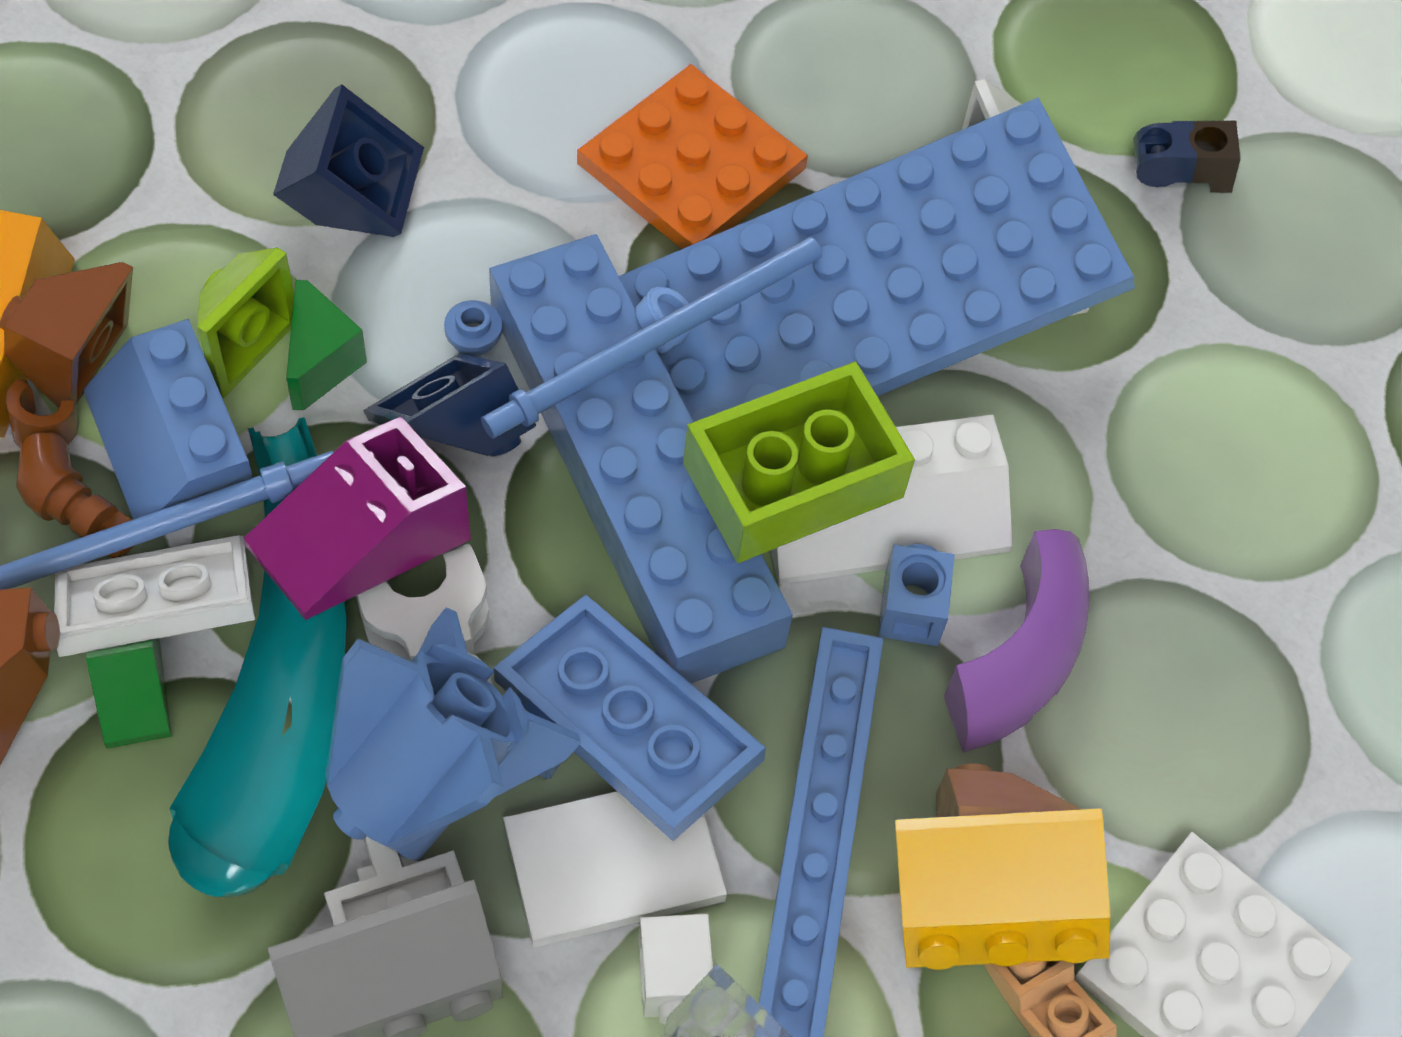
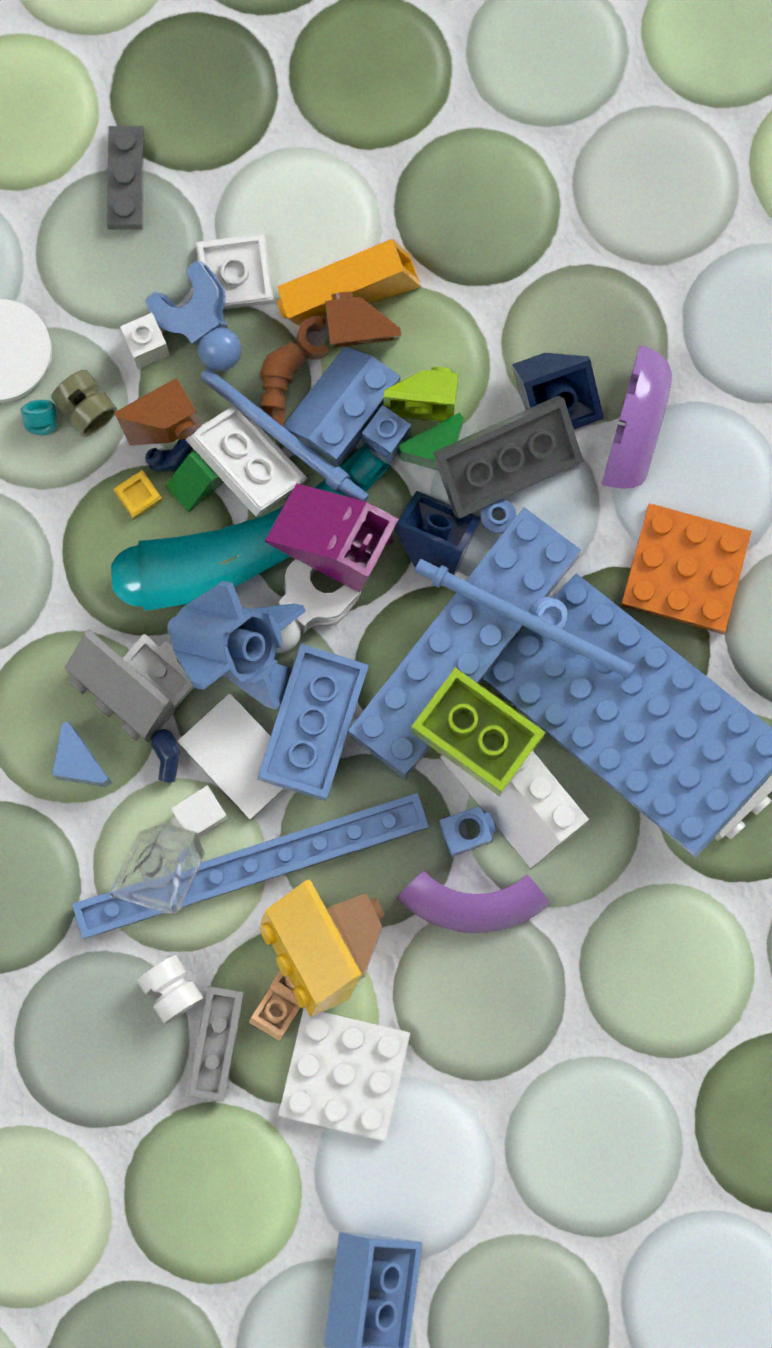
camera: 70 degrees right, 20 degrees up
(70, 711) = (168, 459): none -> dark blue arm
(88, 793) = (138, 494): none -> yellow tile
(256, 392) = (386, 433): none -> medium blue brick
(402, 259) = (508, 456): none -> dark grey plate
(477, 106) = (643, 418): none -> medium lavender brick
(545, 964) = (168, 754): none -> dark blue arm

